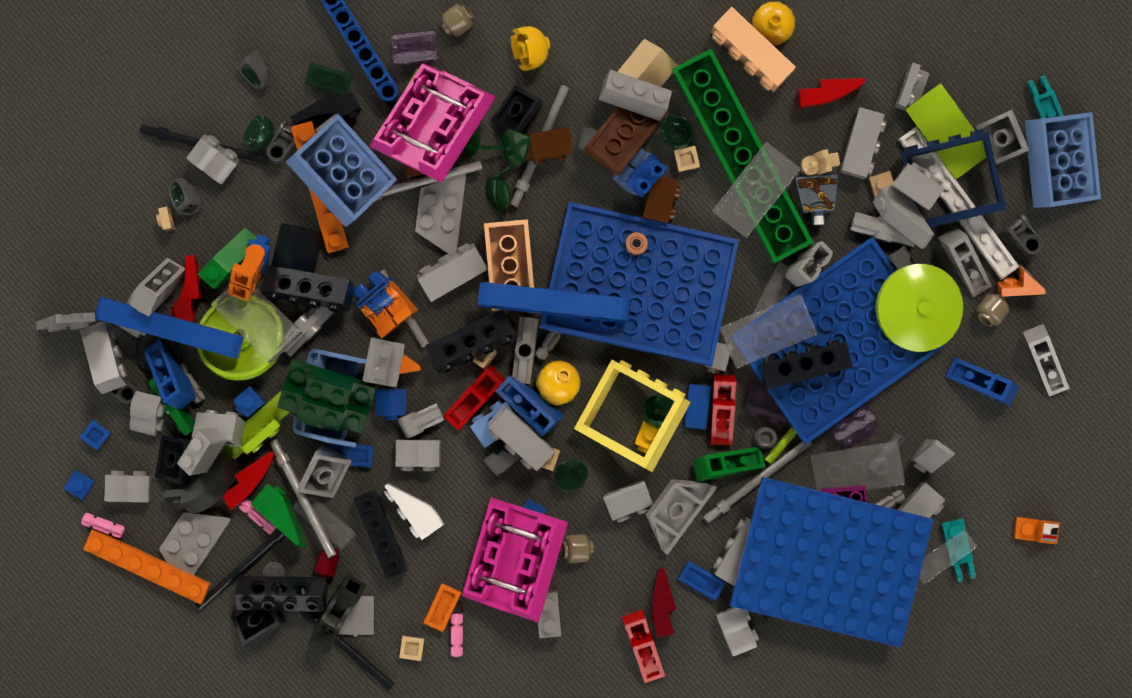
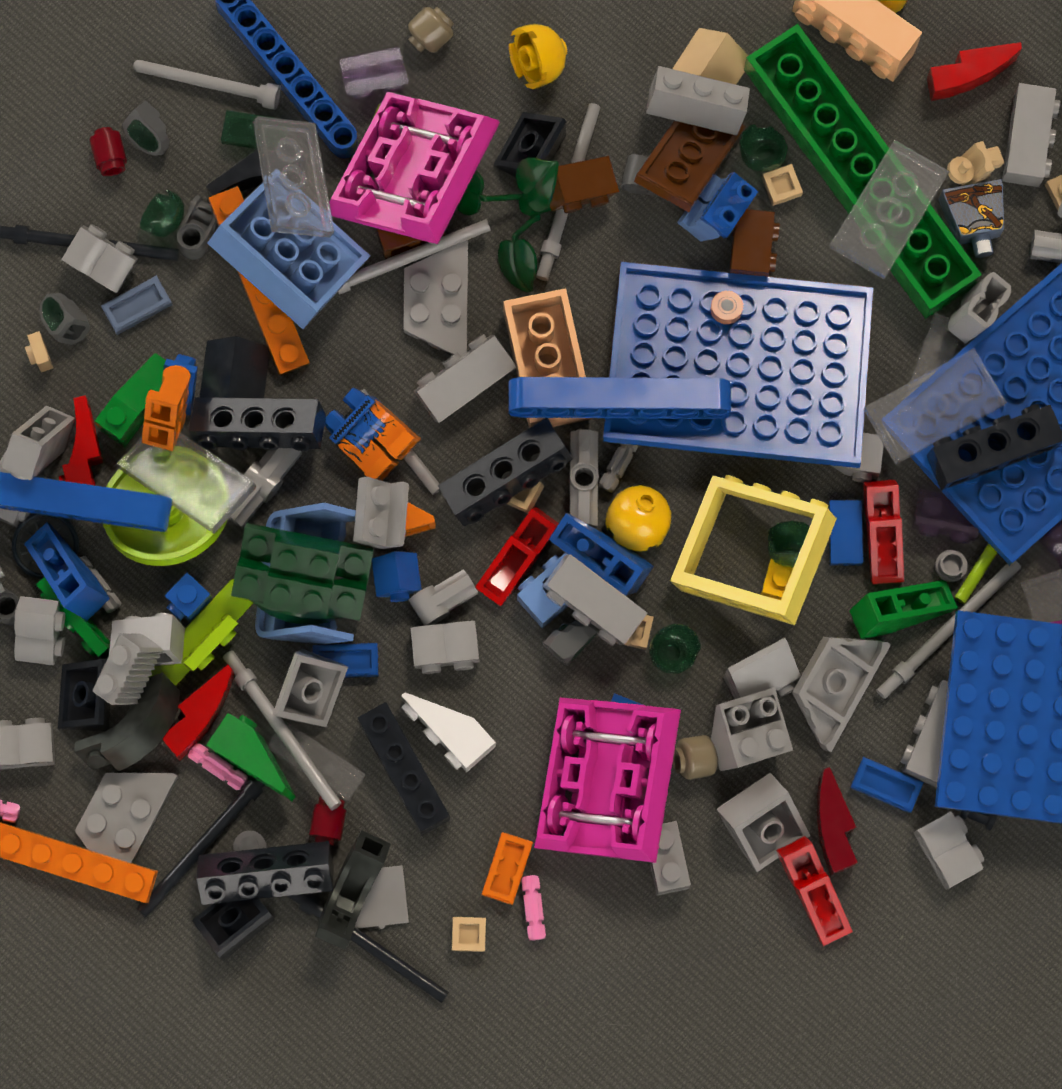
camera: 10 degrees left, 10 degrees down
(226, 82) = (108, 151): none -> dark red brick
(235, 192) = (136, 305): none -> sand blue tile
(339, 53) = (266, 94): none -> light grey piece
(349, 120) = (293, 177): none -> clear tile
(613, 538) = (749, 730): none -> light grey slope
(615, 596) = (763, 821): none -> light grey slope

